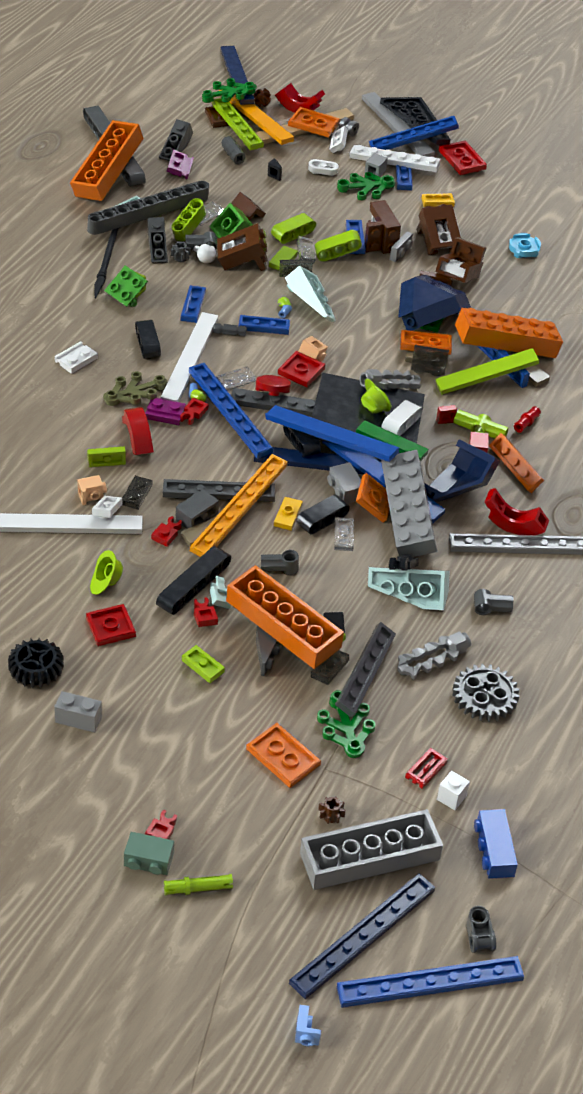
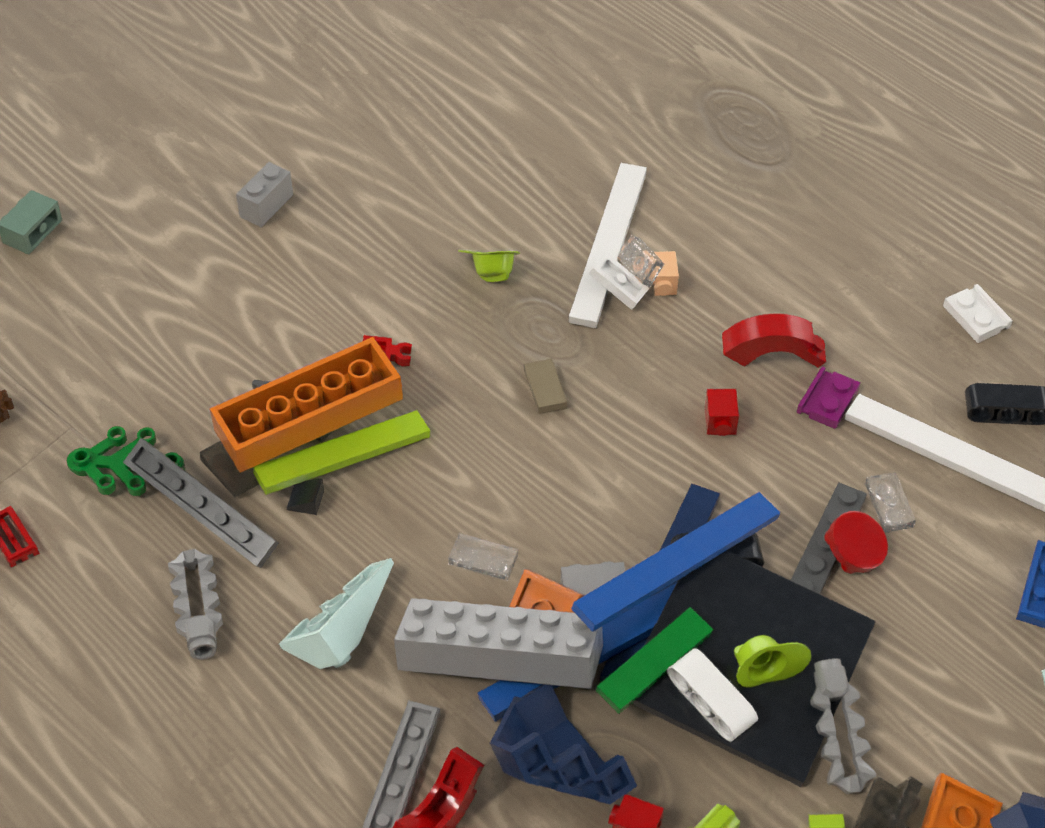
camera: 110 degrees right, 5 degrees up
(35, 662) = (362, 171): black gear -> none
(89, 495) = (640, 260): none -> clear plate
(106, 456) = (737, 303): lime panel -> none
(110, 625) = (405, 258): red tile -> none
(114, 396) = (871, 338): olive plant -> none
(137, 492) = (652, 329): clear smoke plate -> none
(163, 827) = (58, 239): plate -> none
(167, 533) = (560, 345): red plate -> none
(193, 580) = (449, 353): black beam -> none
(194, 409) = (818, 430): red plate -> none
(195, 393) = (864, 440): lime arm -> none
(197, 509) = (587, 383): dark grey brick -> none
(198, 449) = (721, 412): none -> red brick
(203, 664) = (294, 331): lime plate -> none
(219, 489) = (624, 423): dark grey plate -> none
(219, 593) = (412, 374): light aqua plate -> none
(229, 329) = (1030, 527): dark grey axle -> none
(231, 410) = (807, 472): blue tile -> none
(239, 505) = (579, 433): light orange tile -> none
(283, 755) = (111, 385): orange tile -> none
(286, 562) = (447, 458): dark grey piece -> none
(288, 513) = (555, 500): yellow plate -> none
(301, 369) = (903, 603): red plate -> none
(313, 348) = (958, 625): light nougat brick -> none
(323, 514) = (533, 538): black beam -> none
(403, 562) = (372, 597): black hinge -> none
(446, 414) = (737, 796): red plate -> none
(485, 692) = (65, 644): dark grey gear -> none
(487, 602) = (267, 711): dark grey piece -> none

